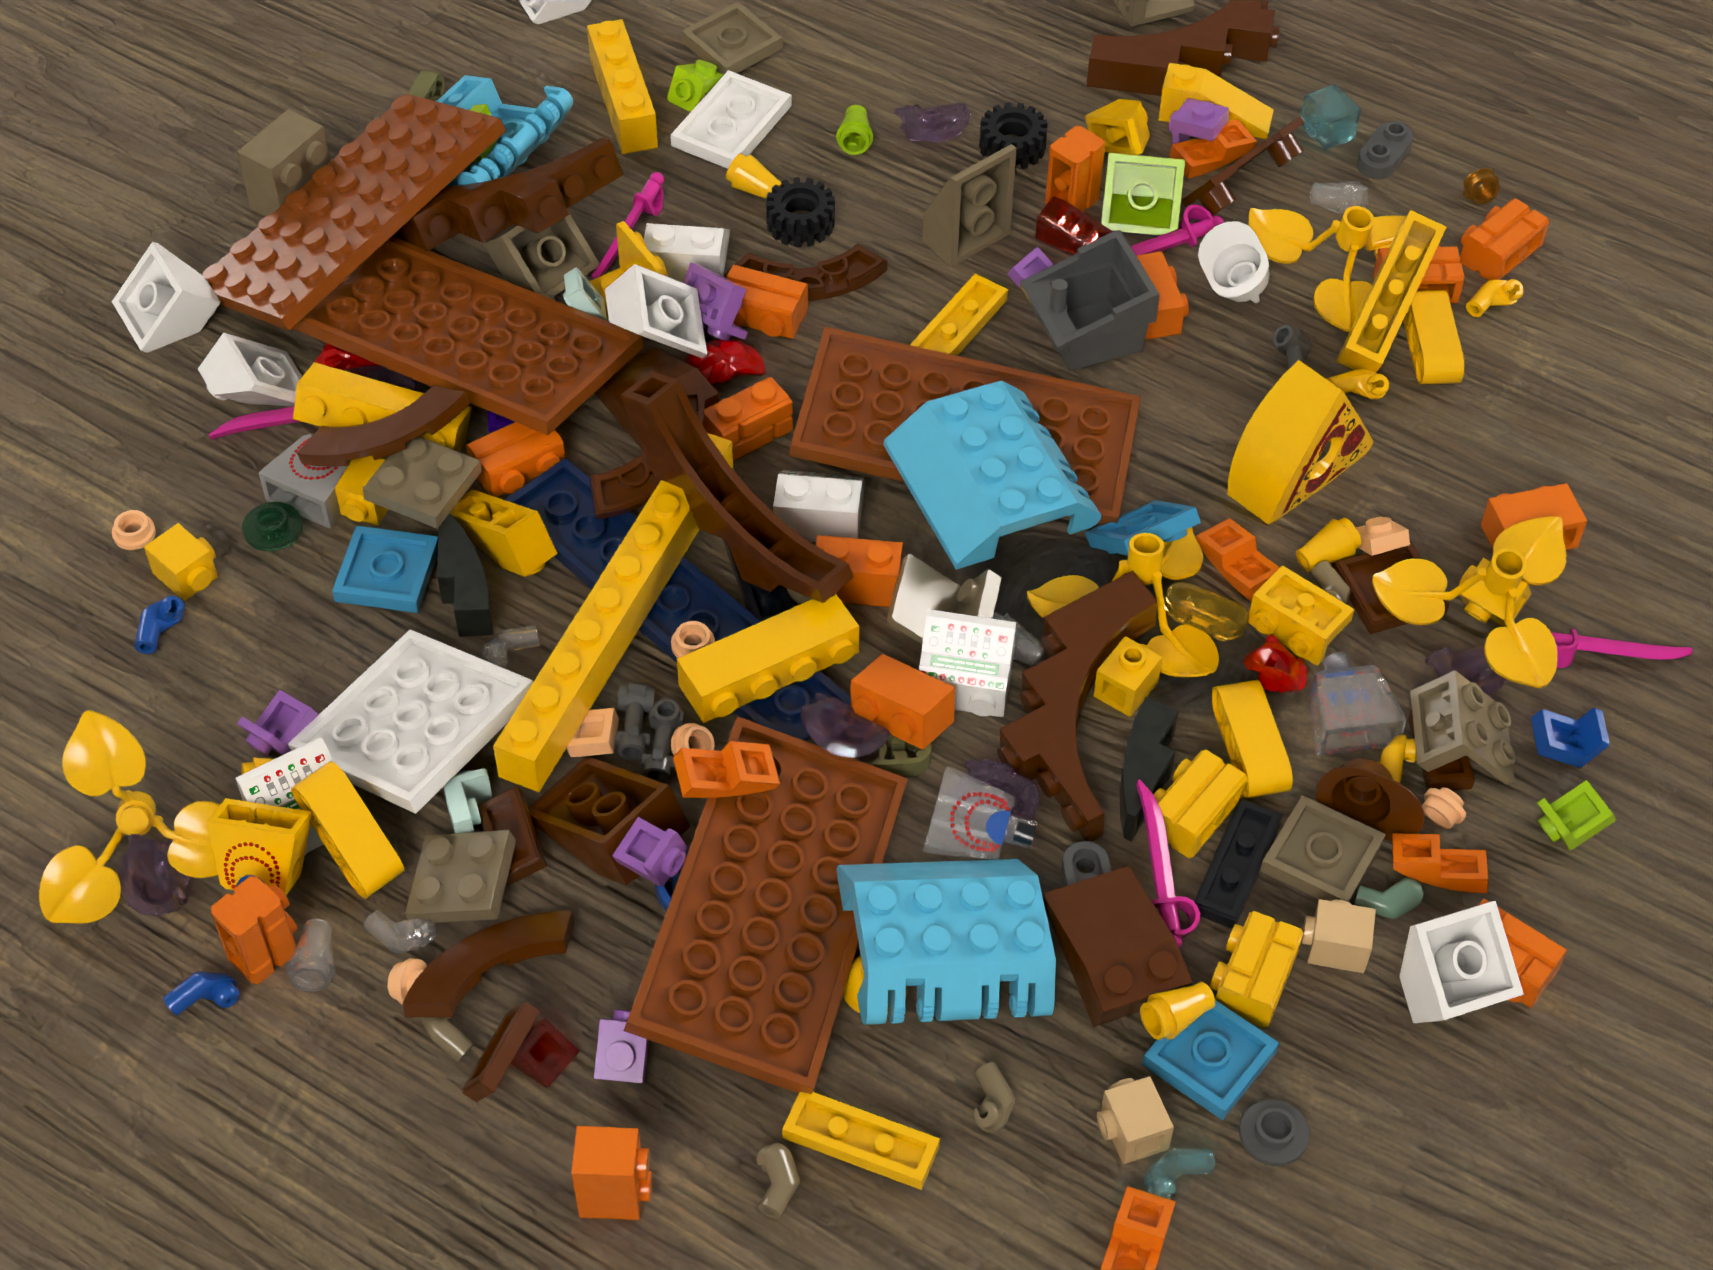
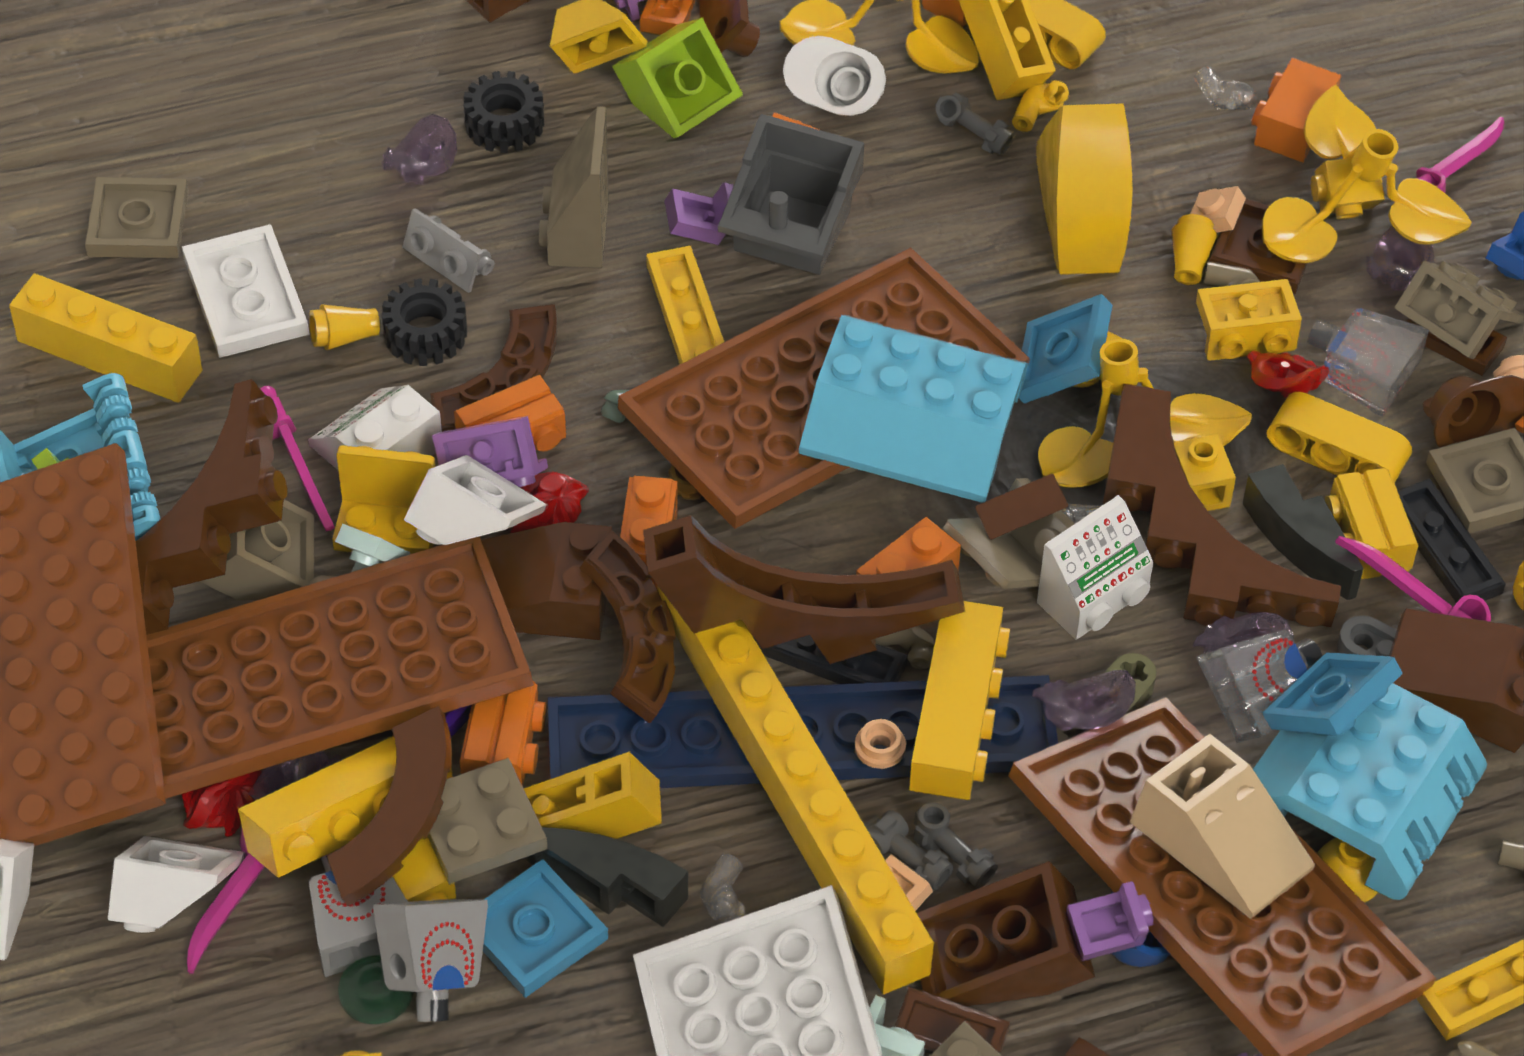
camera: 50 degrees left, 0 degrees up
(307, 523) = (431, 949): none -> light grey torso
(691, 83) = (165, 285): lime bracket -> none
(697, 735) = (980, 826): light nougat plate -> none
(734, 771) = (1075, 808): orange slope -> none
(794, 865) = (1222, 826): none -> tan slope
(820, 503) = (804, 537): white slope -> none
(855, 131) = (367, 212): lime cone -> none
(872, 184) = (445, 251): none -> light grey hinge
(903, 700) = (1091, 638): orange brick -> none
(968, 587) = (1021, 506): none -> reddish brown sticker
(980, 857) = (1333, 693): none -> dark azure plate
(1059, 217) = (647, 165): clear red slope -> none
(1076, 168) = (619, 90): orange brick -> none
(1186, 233) = (749, 84): dark pink sword -> none
(1206, 611) = (1188, 372): clear yellow plate -> none
(1236, 556) = (1149, 318): orange slope -> none
(1396, 752) = (1437, 362): yellow arm -> none
(1499, 475) = (1225, 94): none -> clear arm

